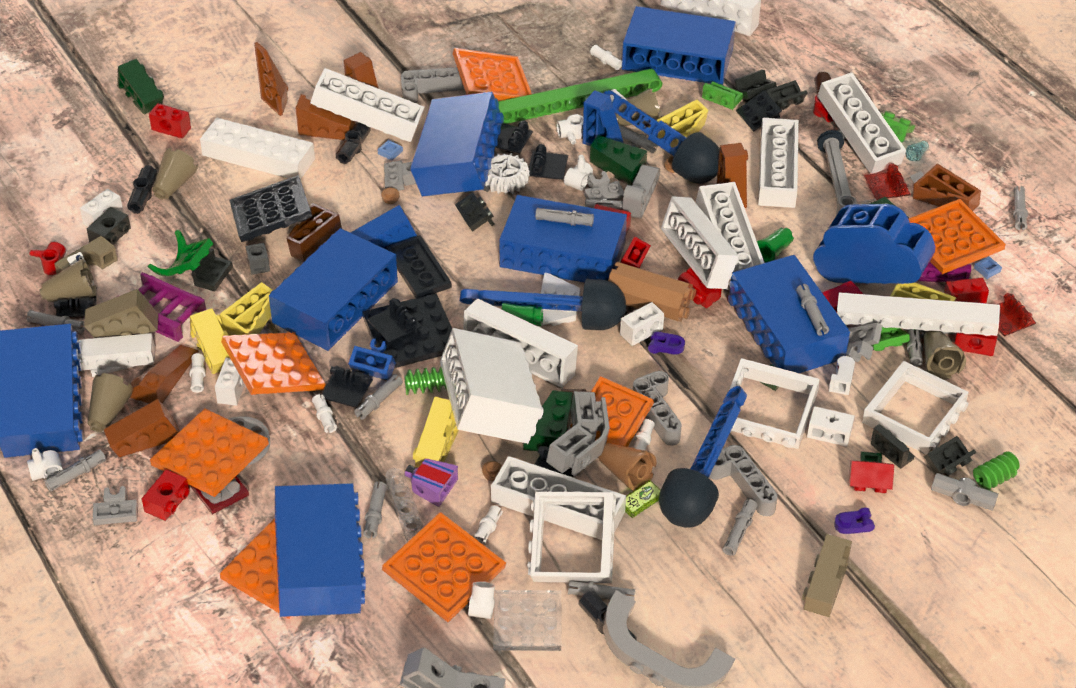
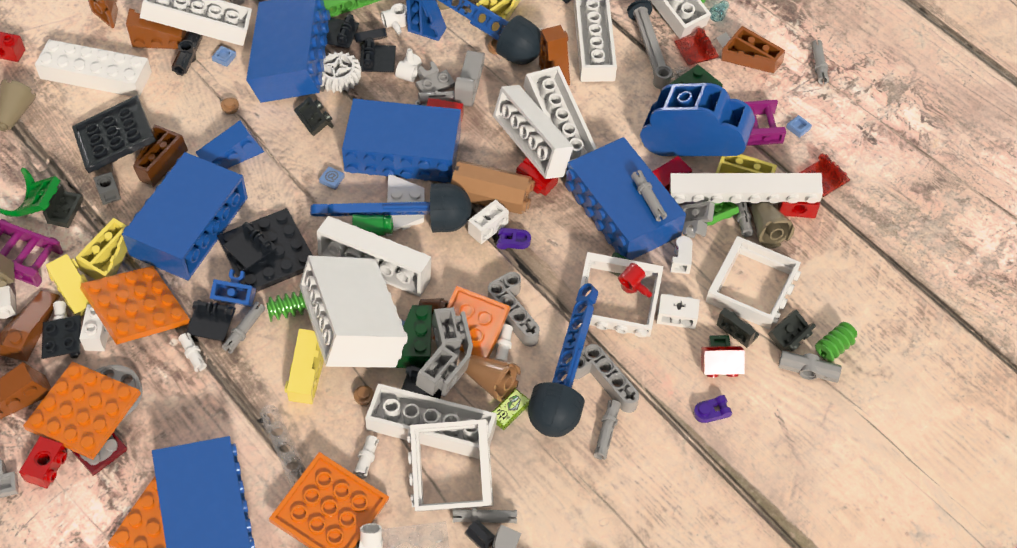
camera: 10 degrees left, 10 degrees up
(196, 386) = (61, 337): none -> black hinge
(373, 516) = (254, 460): light grey pin -> none
(397, 174) = (234, 83): light grey plate -> none
(419, 267) = (266, 181): black plate -> none
(432, 480) = (307, 413): medium lavender torso -> none
(485, 270) = (331, 178): none -> medium blue tile
(549, 141) = (376, 34): none -> black beam
(563, 216) = (402, 119): light grey pin -> none
(617, 158) = (444, 46): dark green wedge -> none
(635, 253) = (472, 148): red brick -> none
(638, 139) = (461, 23): dark grey pin -> none
(775, 243) = (602, 122): green plant -> none
(783, 386) = (631, 280): none -> red piece
(828, 575) = (695, 475): dark tan wedge -> none
(958, 236) = (771, 98): orange plate -> none
(968, 290) = (785, 156): red brick -> none

